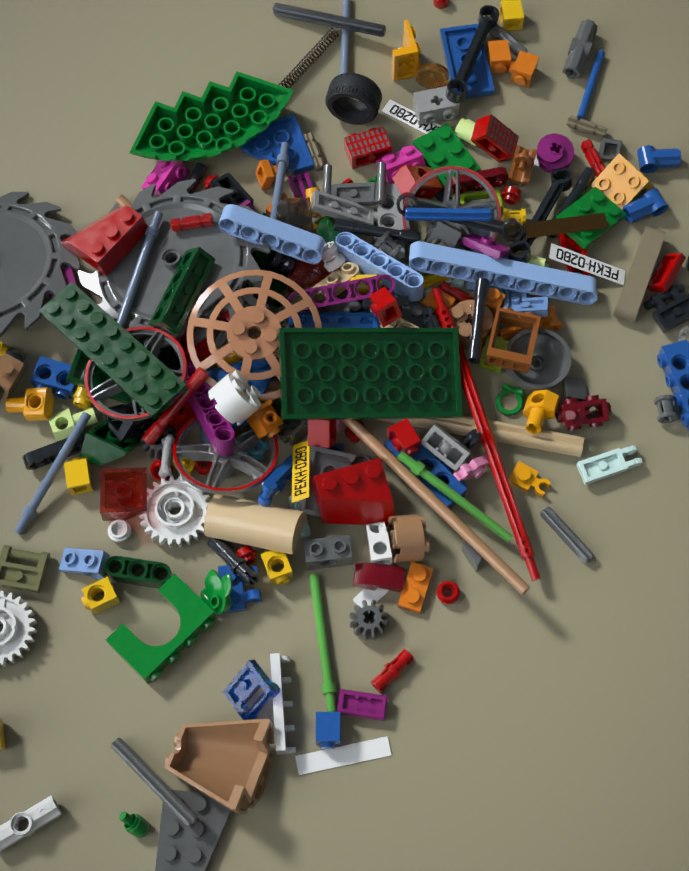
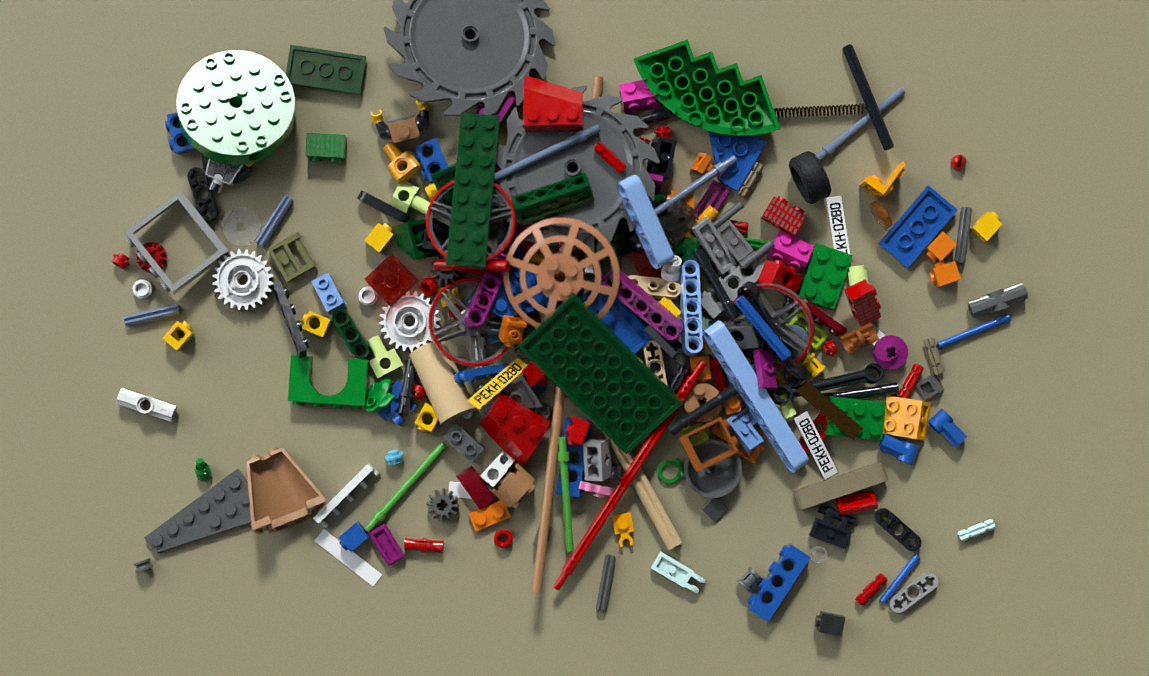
camera: 50 degrees right, 20 degrees up
(29, 512) = (331, 228): sand blue bar -> none
(73, 613) = (288, 311): none -> black plate
(155, 783) = (234, 460): dark grey axle -> none
(165, 469) = (446, 279): light grey piece -> none
(181, 560) = (380, 353): none -> yellowish green piece
(235, 398) = (504, 305): white brick -> none
(245, 685) = (336, 465): clear blue plate -> none
(285, 628) = (394, 457): none -> medium azure plate
(385, 307) = (651, 347): red brick -> none
(386, 238) = (709, 302): dark grey bush -> none
(434, 106) = (855, 226): light grey brick -> none
(472, 54) = (923, 229): black piece -> none
(539, 406) = (673, 500): light orange piece -> none
(574, 413) = (696, 525): dark red brick -> none

